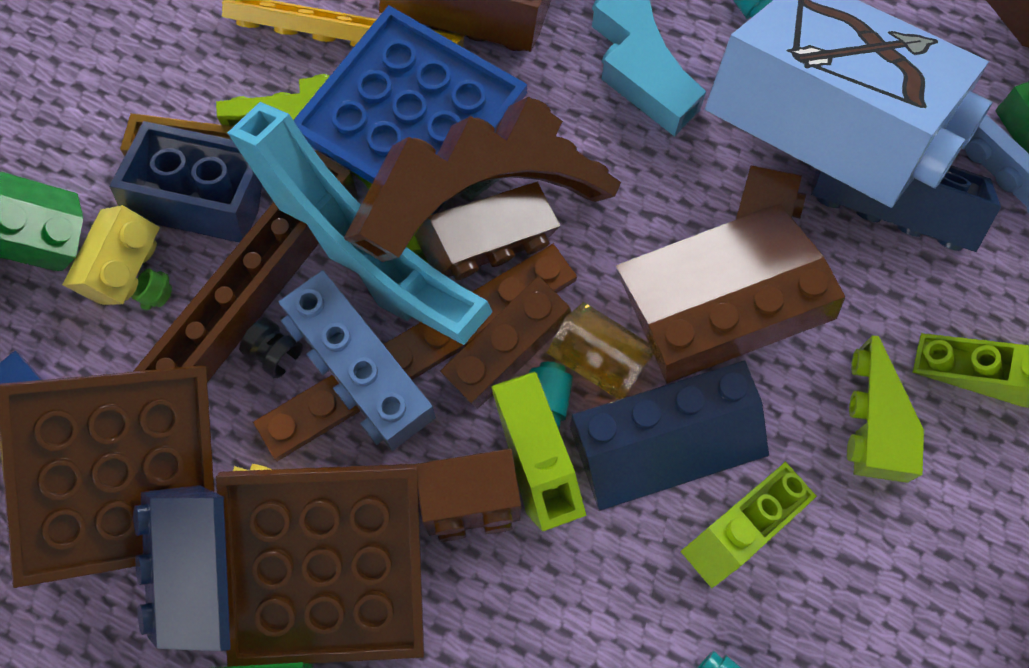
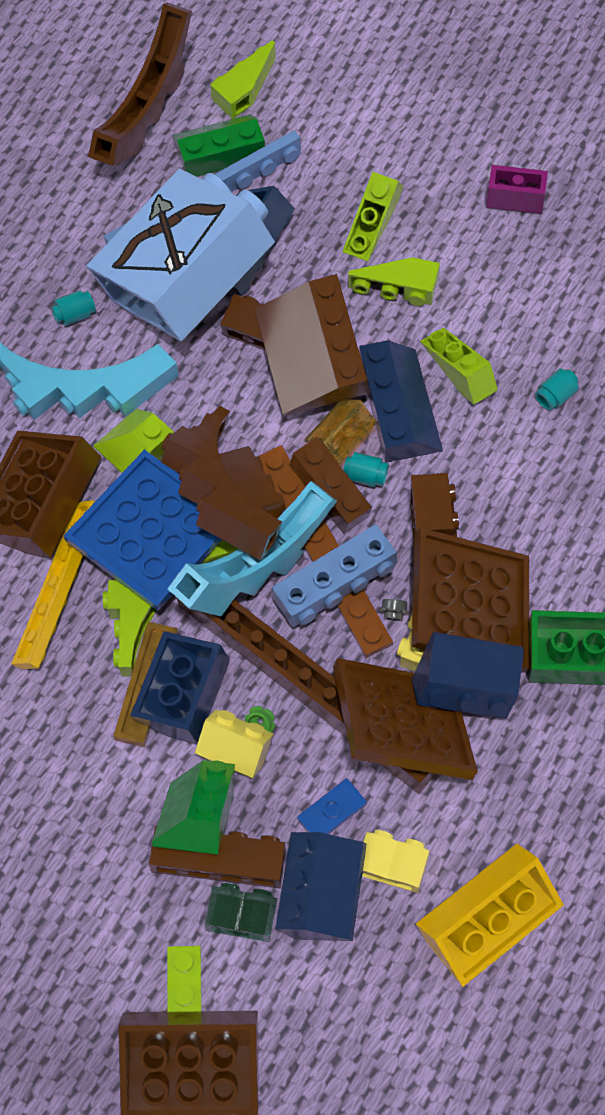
camera: 80 degrees left, 5 degrees down
(268, 345) = (314, 639): black wheel -> none
(320, 453) = (394, 609): none -> dark grey plate
(538, 452) = (395, 469): lime slope -> none
(567, 90) = (131, 436): none -> lime slope

